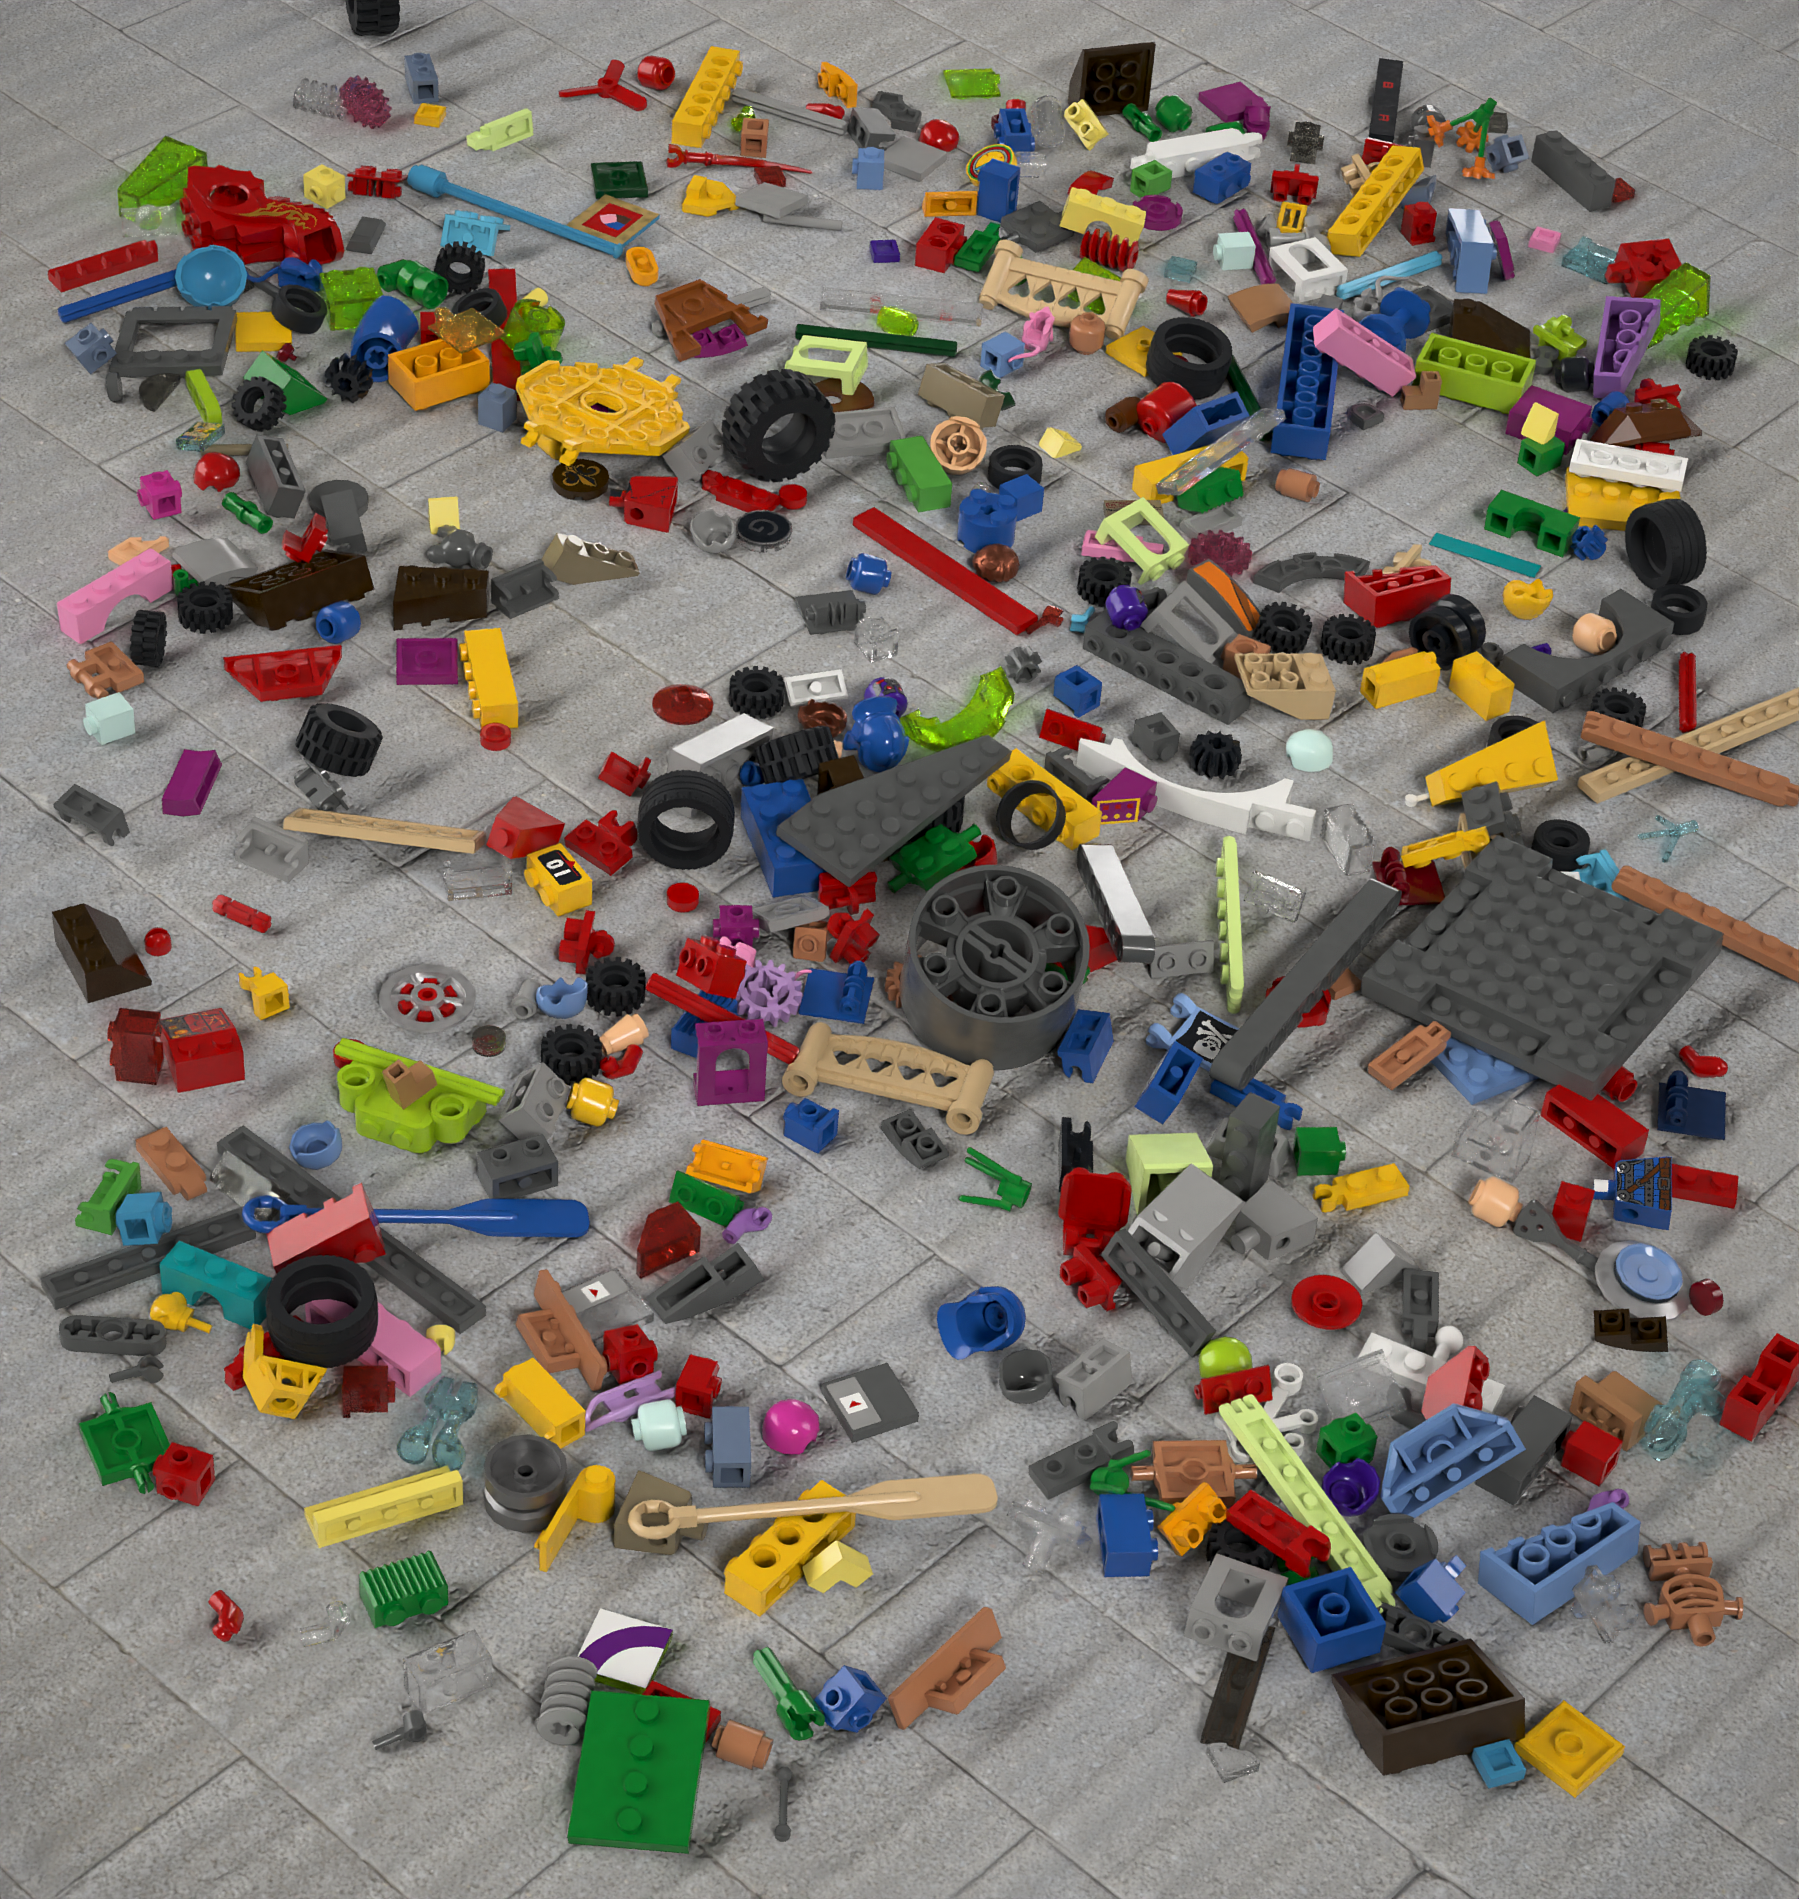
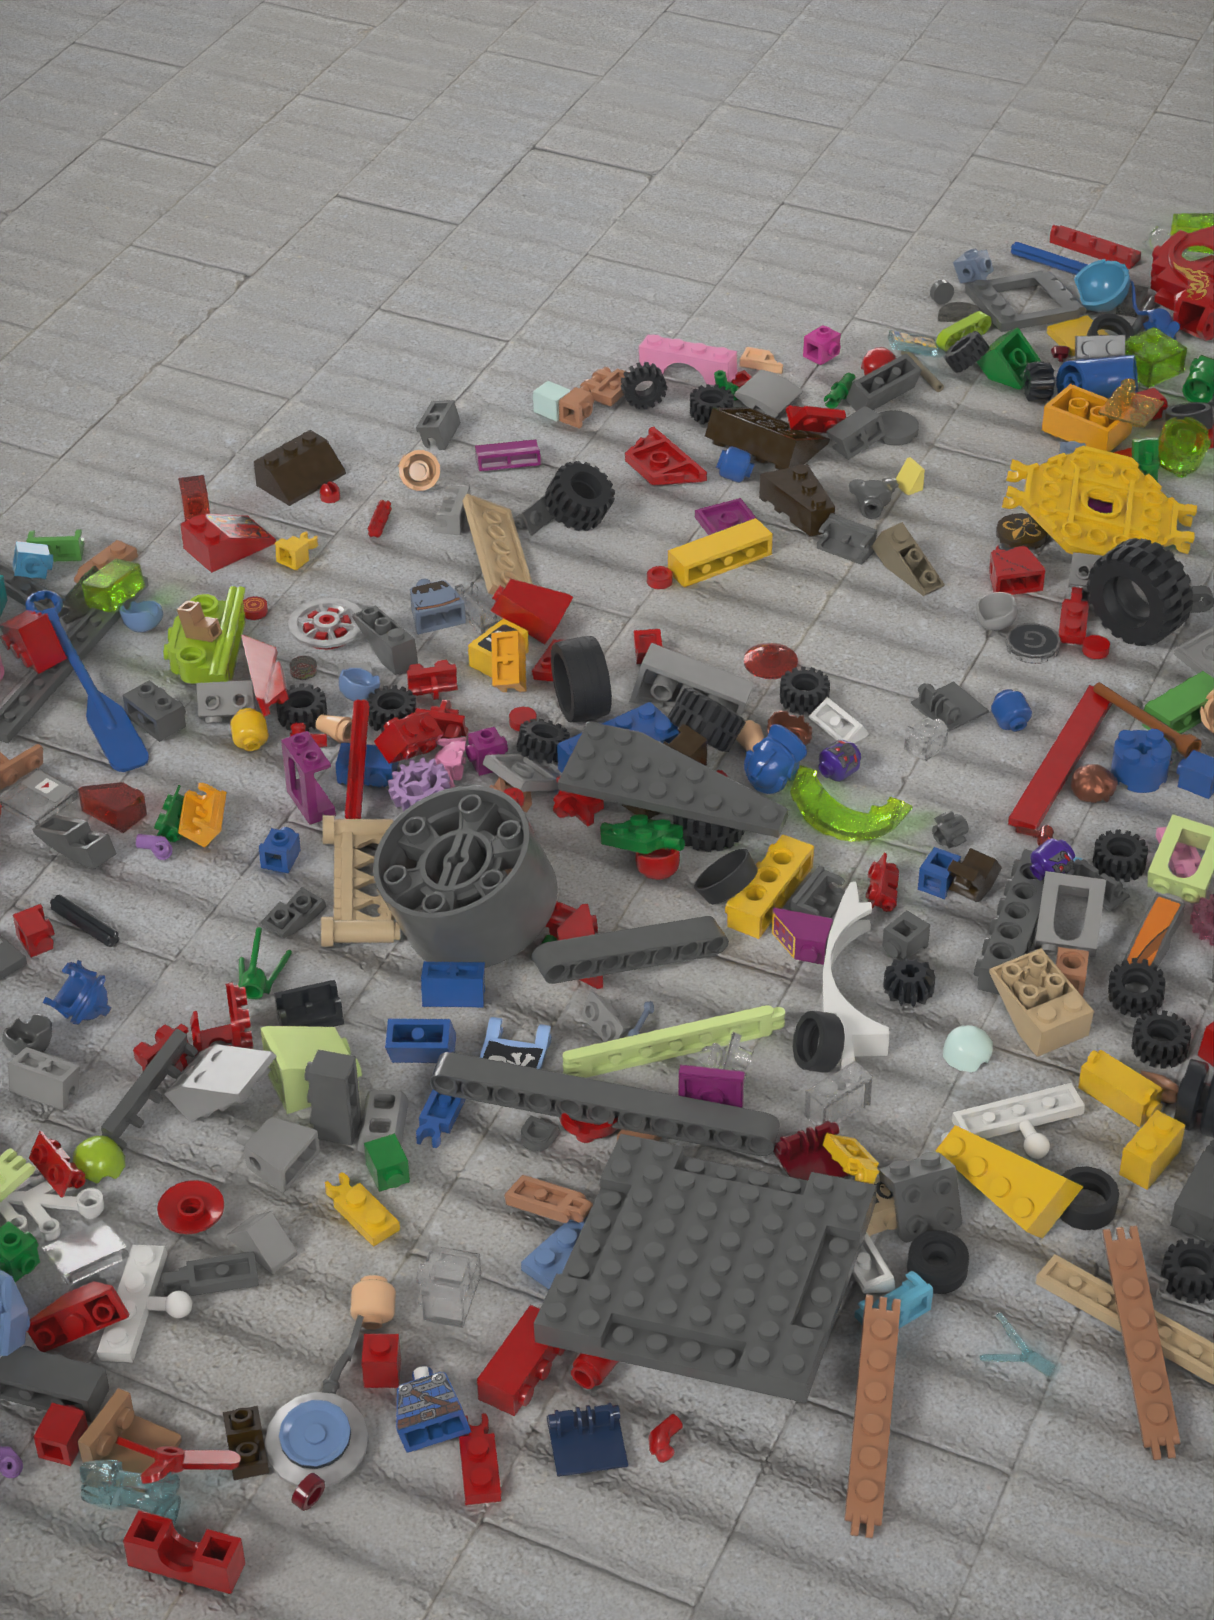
camera: 75 degrees right, 0 degrees up
(145, 704) = (575, 407): none -> nougat brick
(178, 854) = (419, 470): none -> light nougat helmet
(273, 1142) = (113, 585): none -> clear neon green brick
(339, 326) = (1099, 346): none -> bracket
(448, 907) = (436, 606): none -> sand blue torso
(498, 955) = (388, 639): none -> dark grey slope
(507, 1063) = (265, 673): none -> wedge
(610, 866) = (508, 661): none -> light orange hinge
(662, 951) = (447, 719): none -> red hips
(743, 885) = (540, 740): none -> black tyre
(845, 1306) = (84, 920): none -> black axle
(853, 1346) = (34, 930): none -> red brick
(987, 483) = (1184, 743): none -> dark orange piece
(1097, 663) = (974, 875): none -> dark brown brick
(1170, 929) = (648, 1009): none -> sand blue hinge
(1285, 801) = (831, 1041): none -> black tyre
(1307, 1046) = (538, 1134): none -> dark grey tile
(1327, 904) = (712, 1085): none -> magenta tile
(1407, 750) = (1022, 1114): none -> white plate
(1670, 1365) = (177, 1459): none -> red piece

